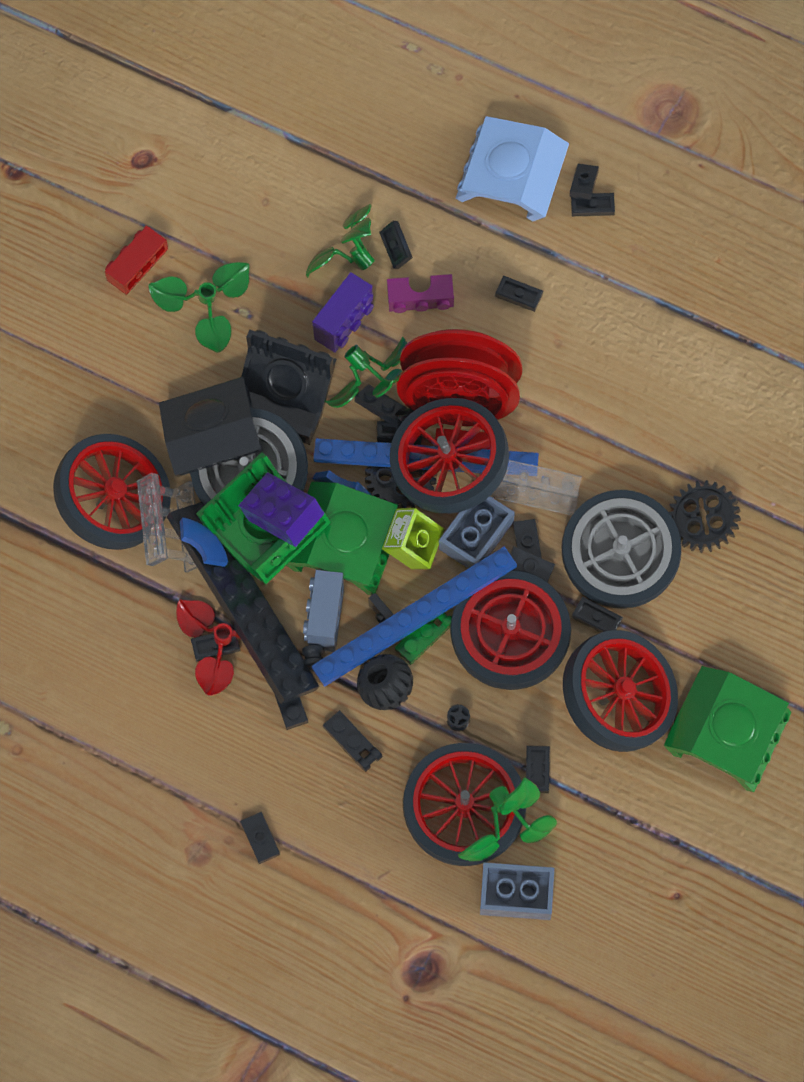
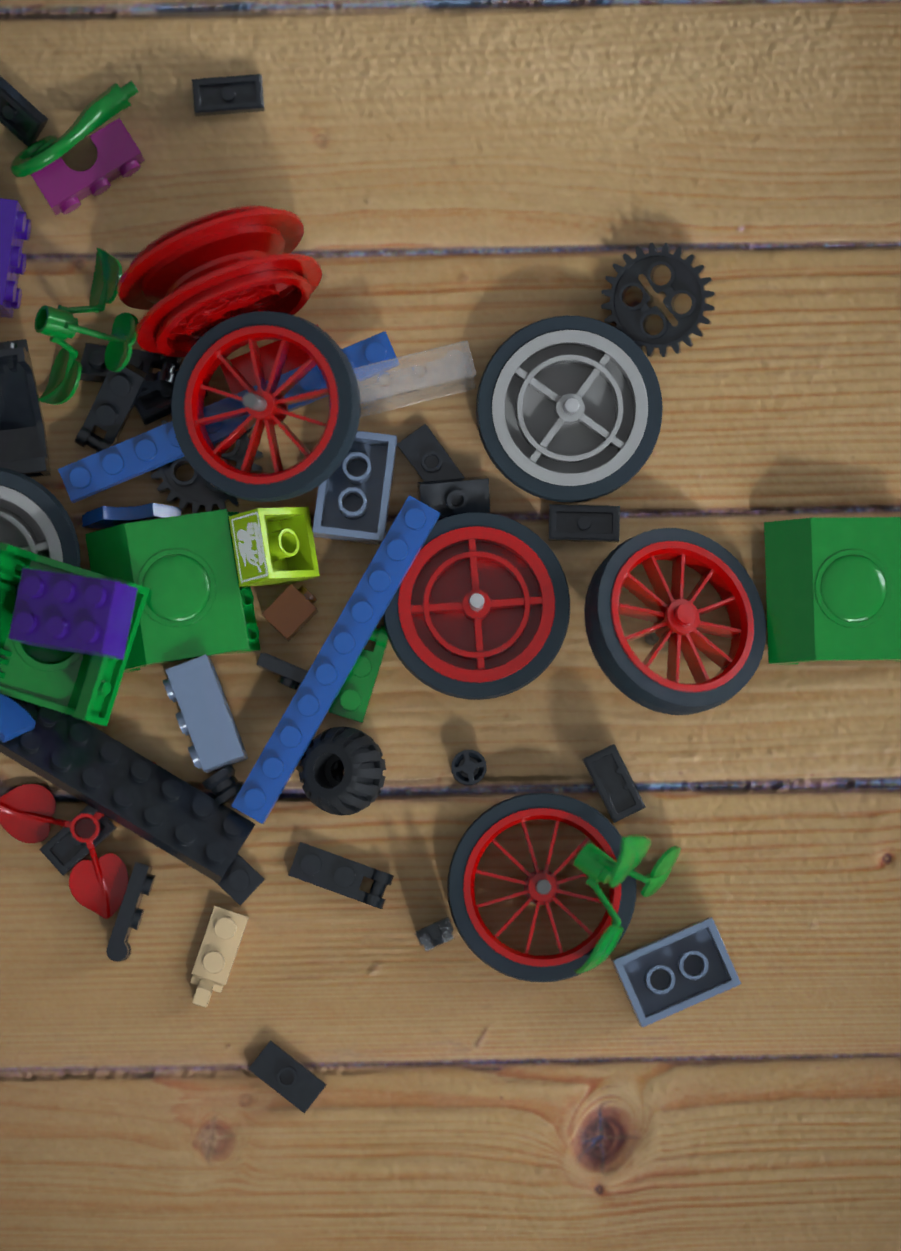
camera: 30 degrees left, 15 degrees up
(222, 698) = (130, 913): none -> black plate
(258, 749) = (217, 953): none -> tan hinge
(365, 420) = (112, 407): none -> black plate
(389, 795) = (435, 934): none -> black hinge
(403, 581) = (291, 611): none -> reddish brown brick
(435, 268) = (94, 115): none -> green plant

